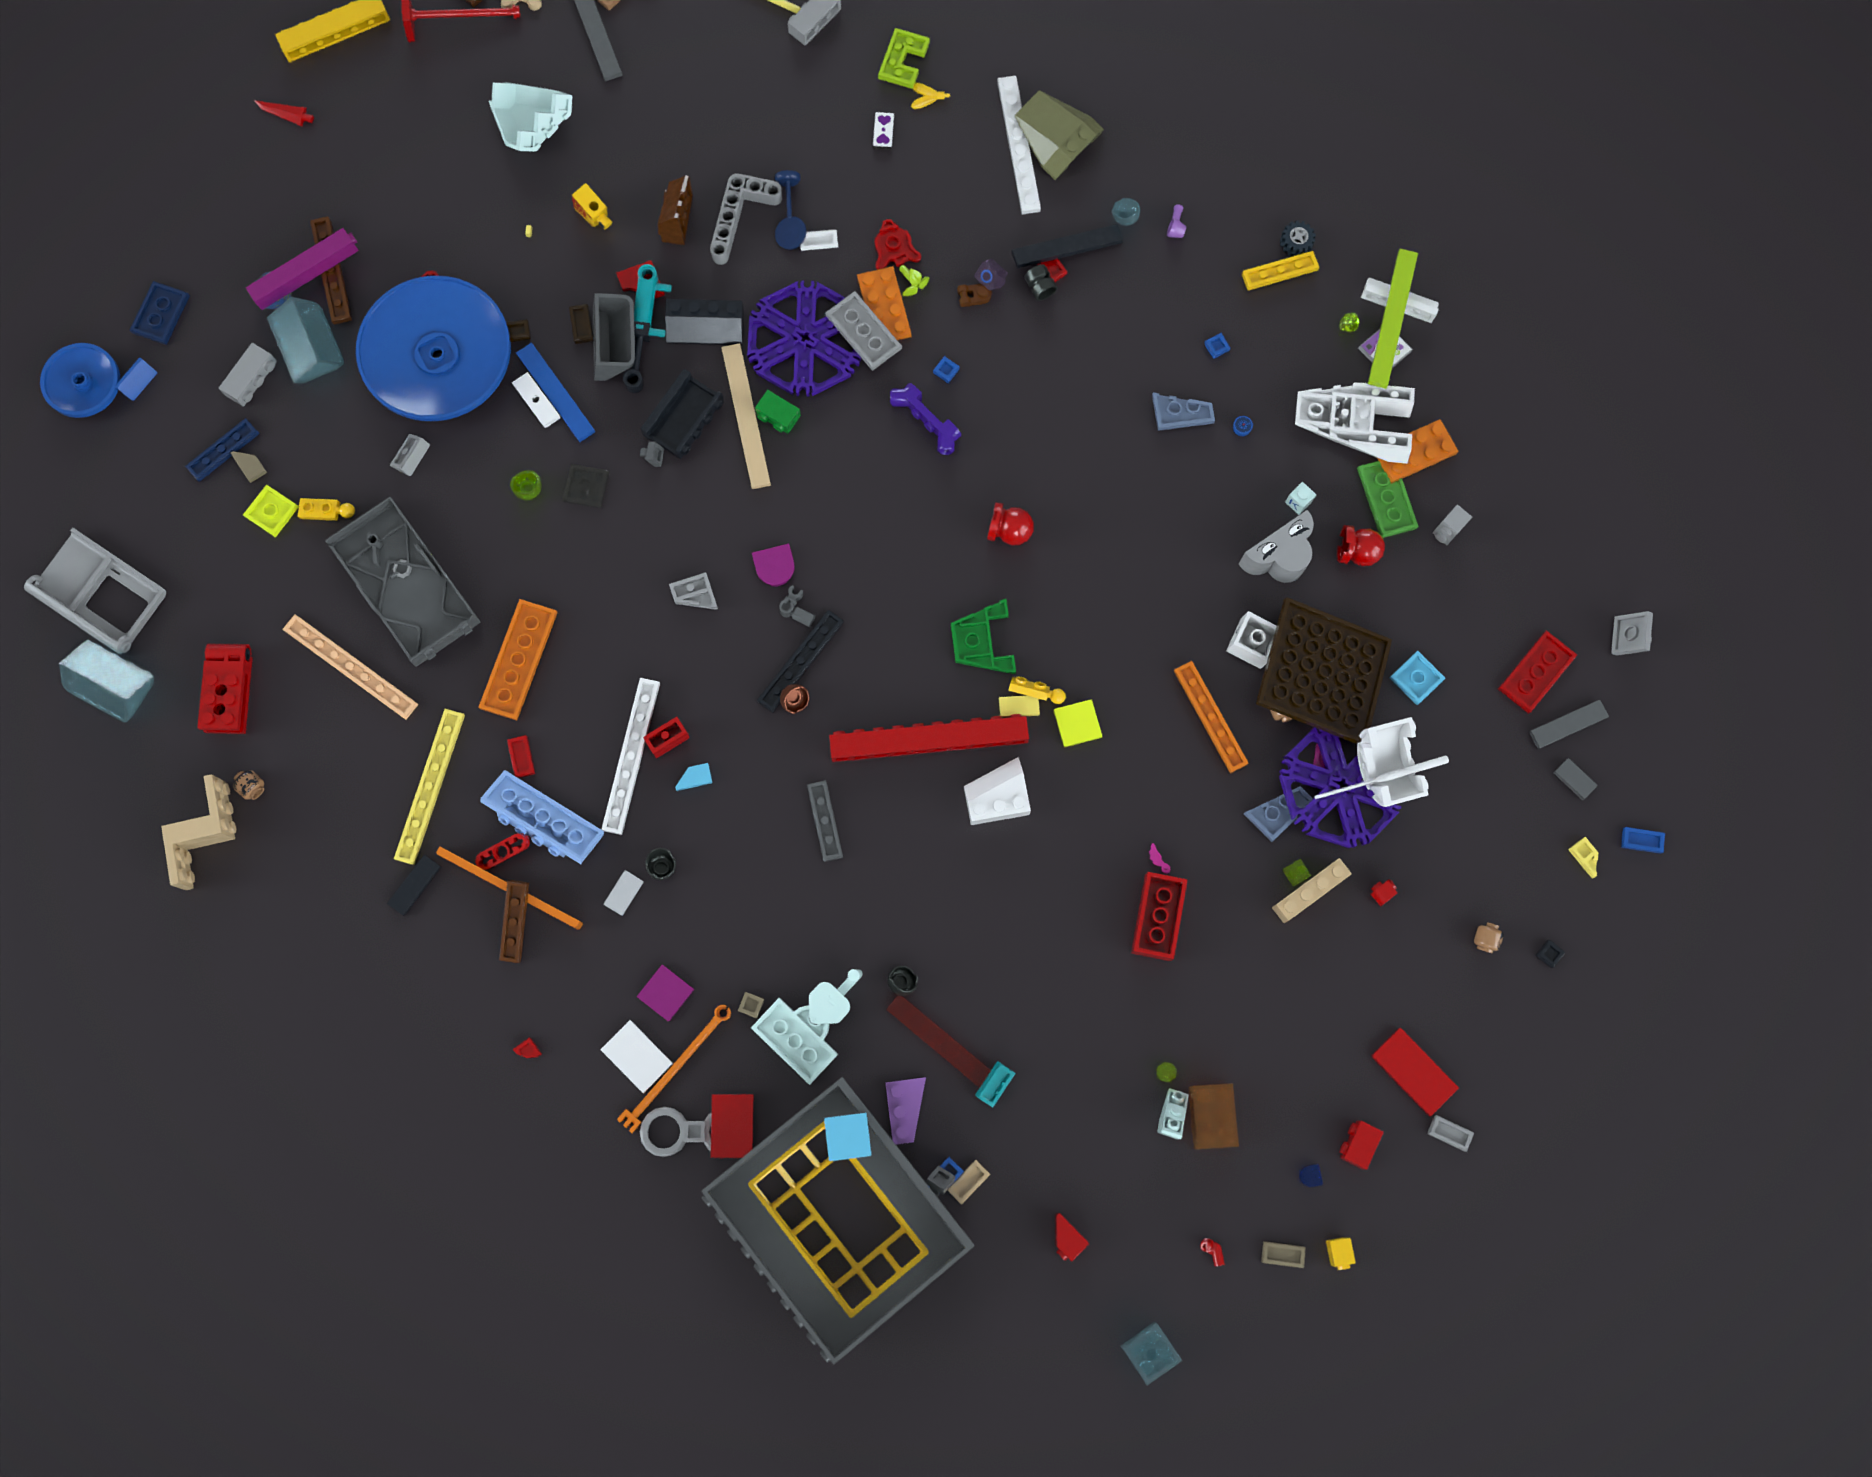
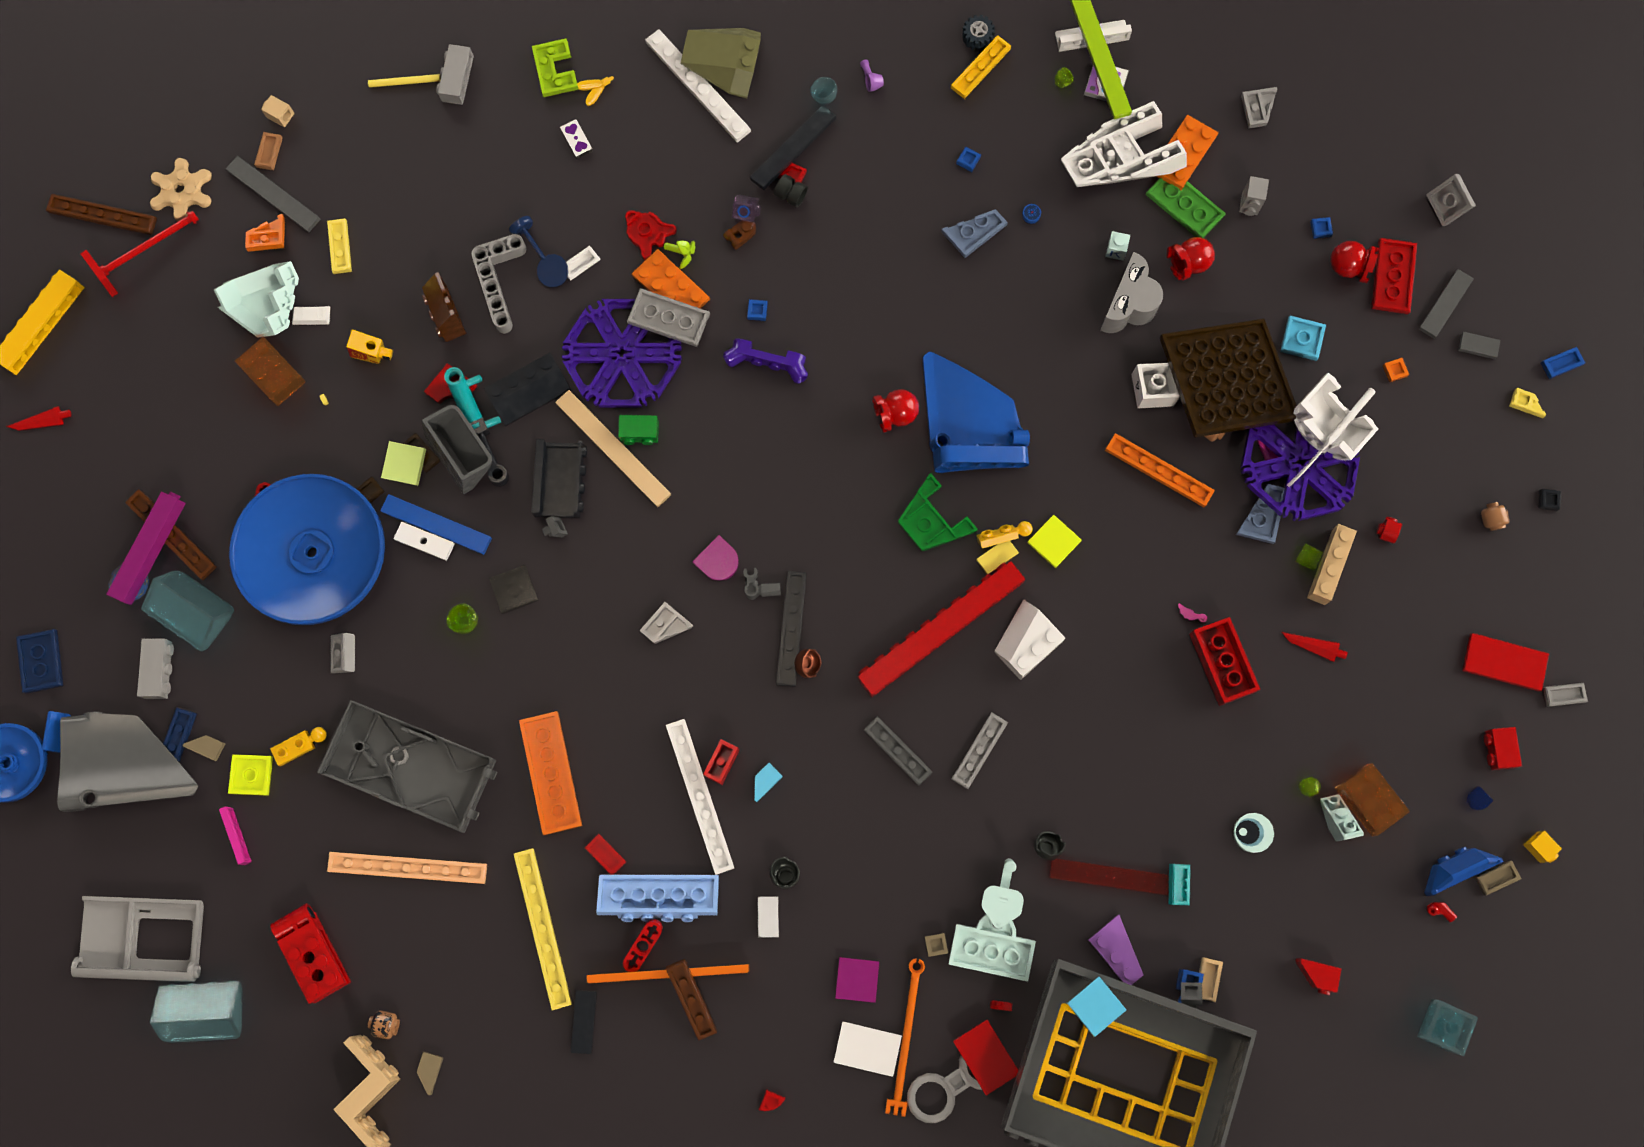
camera: 25 degrees left, 0 degrees up
(167, 433) = (116, 762): none -> dark grey panel
(226, 553) = (235, 835): none -> dark pink tile
(262, 846) = (429, 1070): none -> dark tan tile
(498, 180) = (270, 371): none -> clear orange brick
(560, 323) = (403, 463): none -> yellowish green tile
(562, 153) = (311, 315): none -> white tile
(567, 63) = (266, 235): none -> orange wing
(623, 107) = (339, 246): none -> light yellow tile
(774, 1091) = (1001, 1005): none -> red tile
(895, 863) = (979, 750): none -> light grey tile
(1071, 574) = (970, 420): none -> blue panel
(1090, 1080) = (1253, 832): none -> tile
(1253, 1223) = (1458, 868): none -> blue wedge
(1256, 958) = (1323, 648): none -> red bar
(1483, 755) = (1395, 370): none -> orange tile
(1498, 590) = (1321, 227): none -> blue tile
(1506, 634) = (1353, 260): none -> red tile
(1510, 448) = (1258, 106): none -> light grey wing

